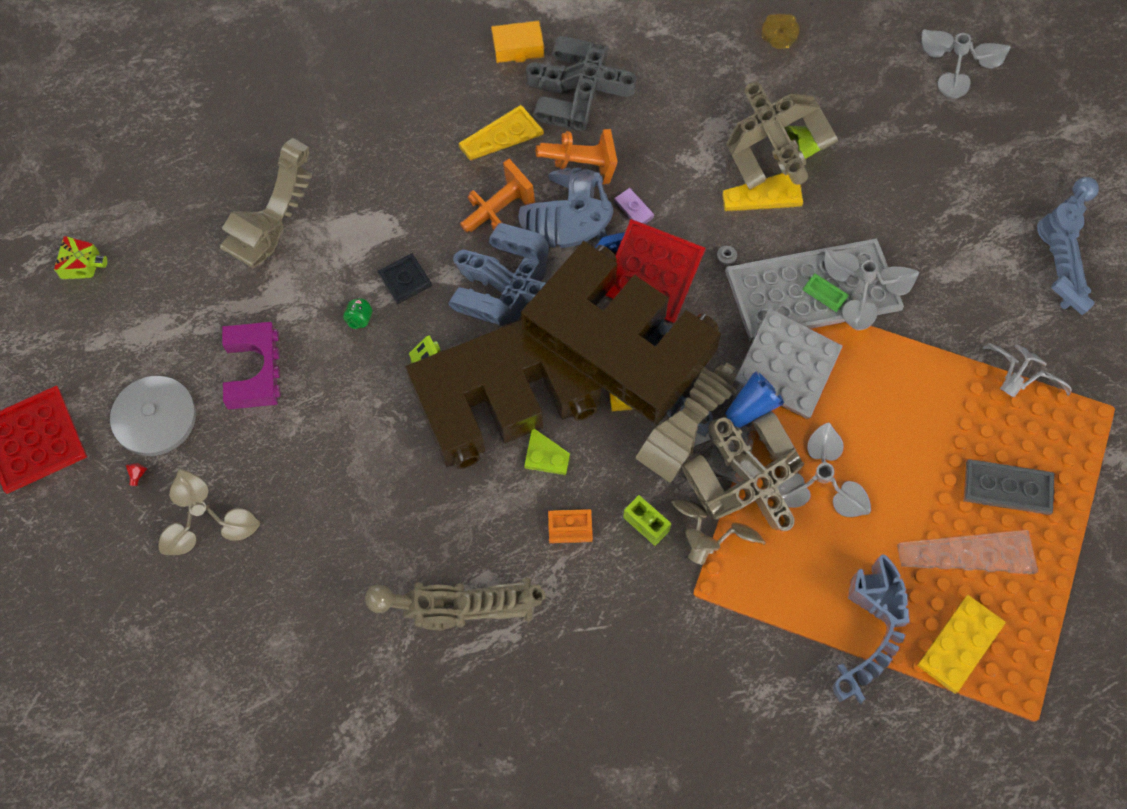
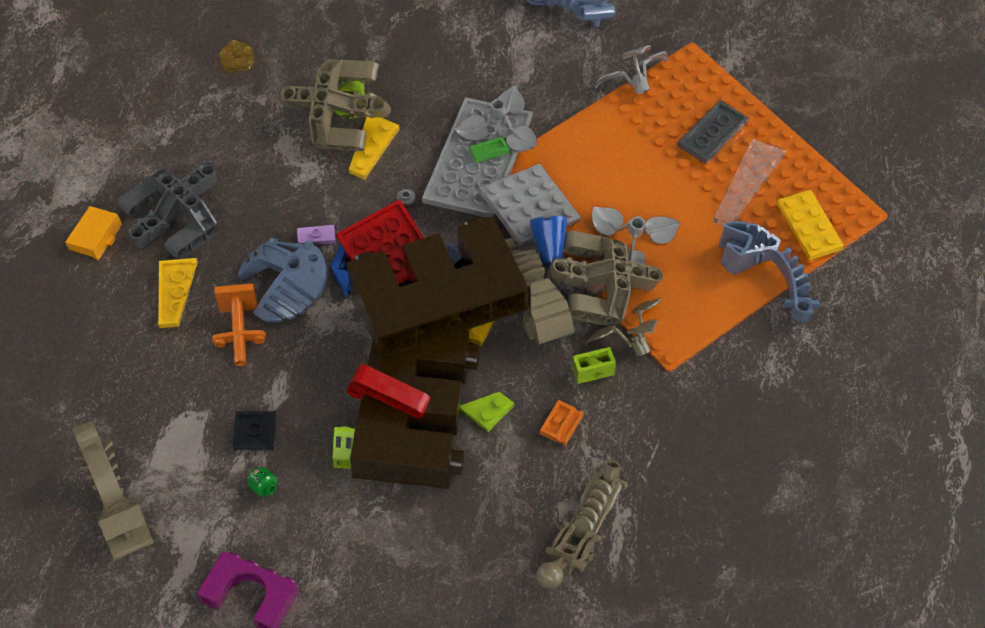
camera: 60 degrees left, 10 degrees down
(483, 357) = (387, 390): none -> red beam
(516, 288) = (341, 369): sand blue piece -> none
(601, 154) = (257, 226): orange piece -> none

